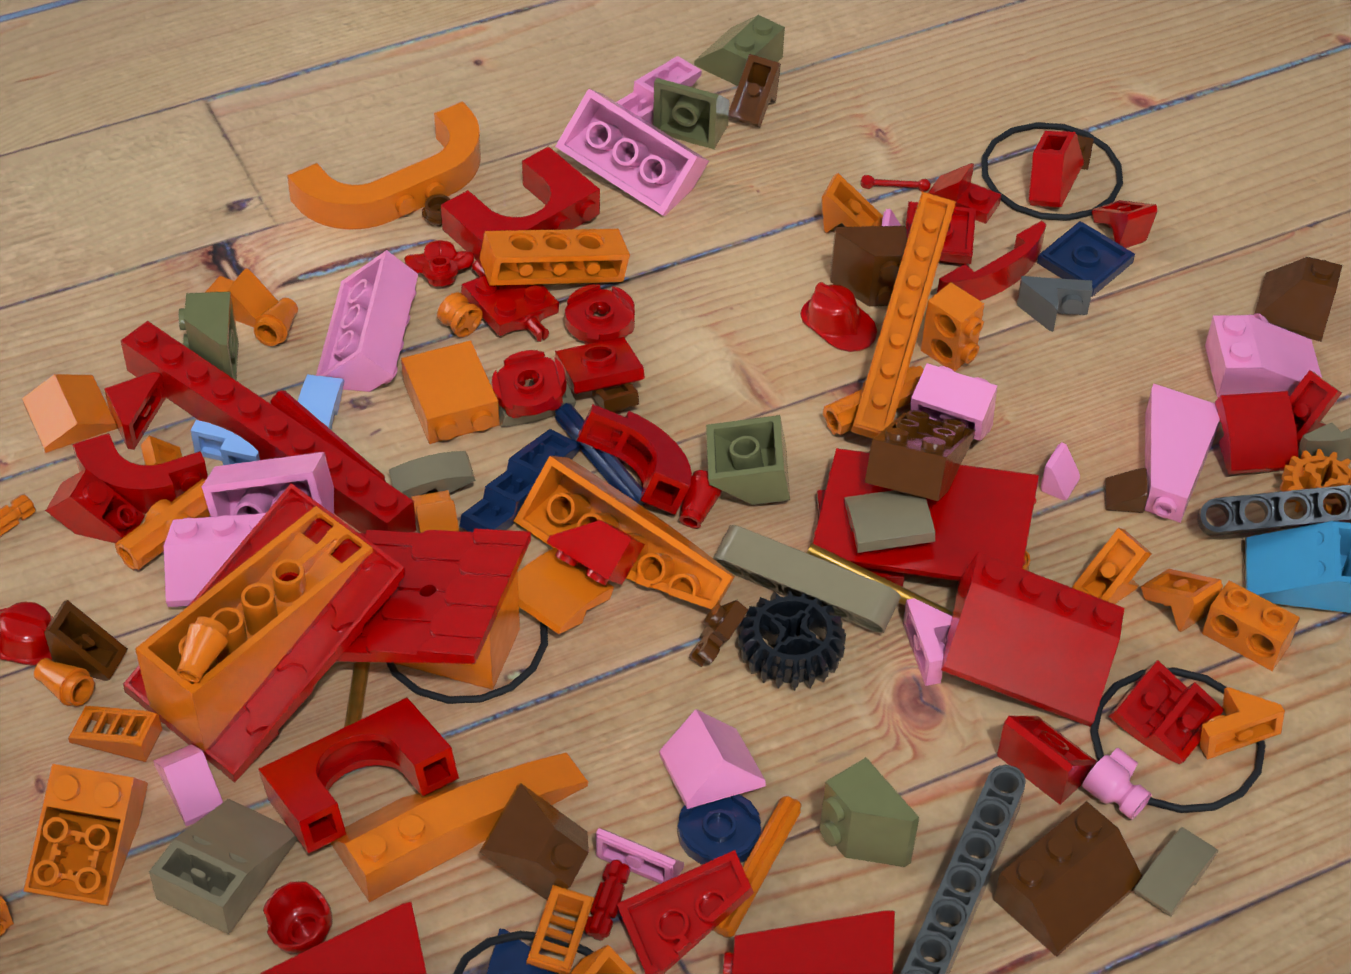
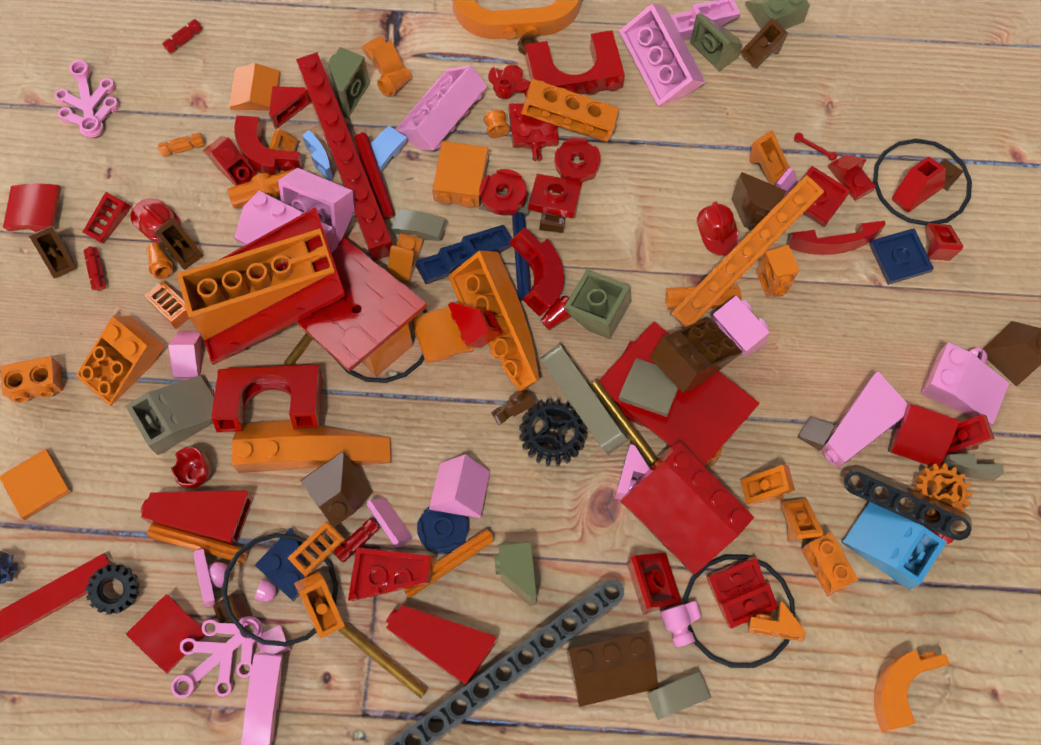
camera: 30 degrees right, 20 degrees up
(202, 646) = (203, 294): orange cone -> none
(1048, 296) = (854, 273): dark grey slope -> none
(1060, 473) = (783, 401): bright pink slope -> none

